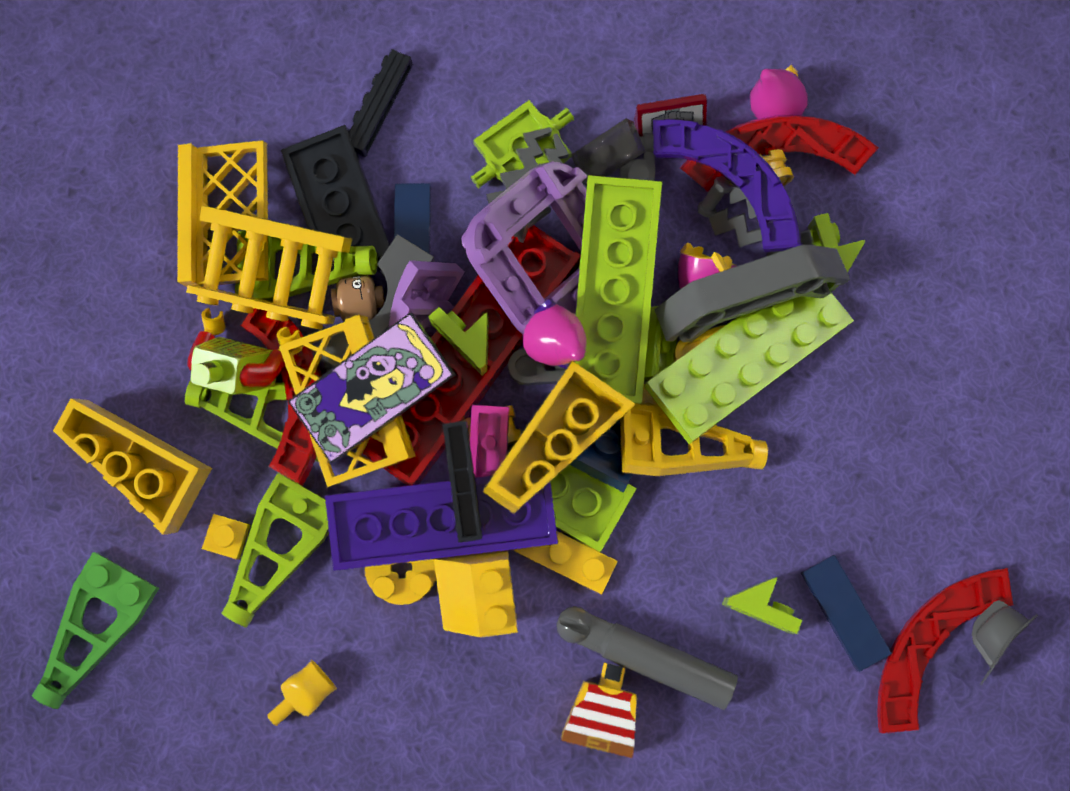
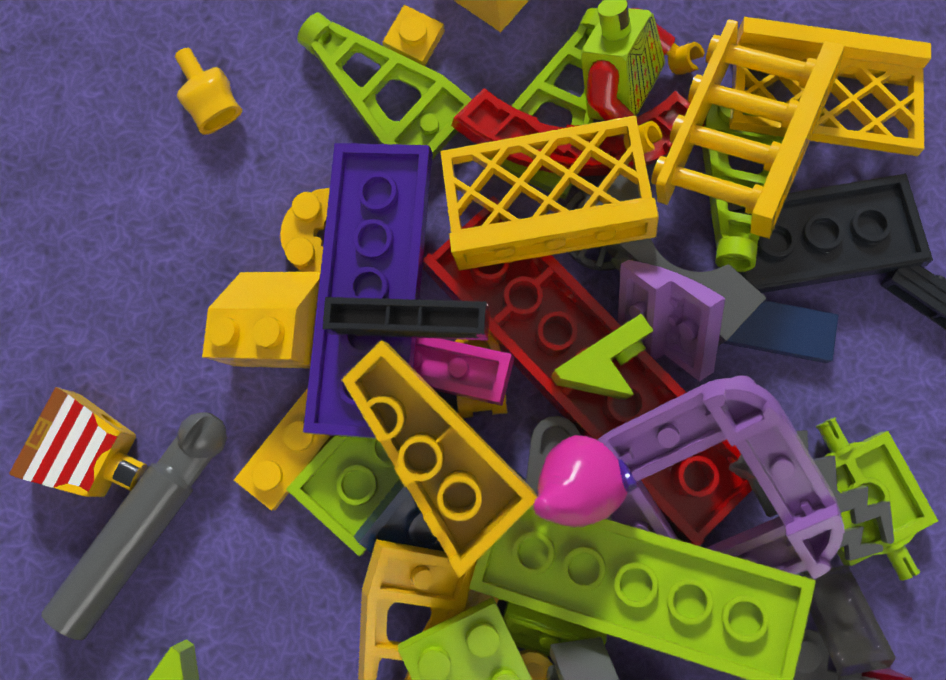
camera: 100 degrees right, 0 degrees up
(357, 297) = (686, 234): medium nougat head -> none
(371, 388) = (555, 220): tile -> none

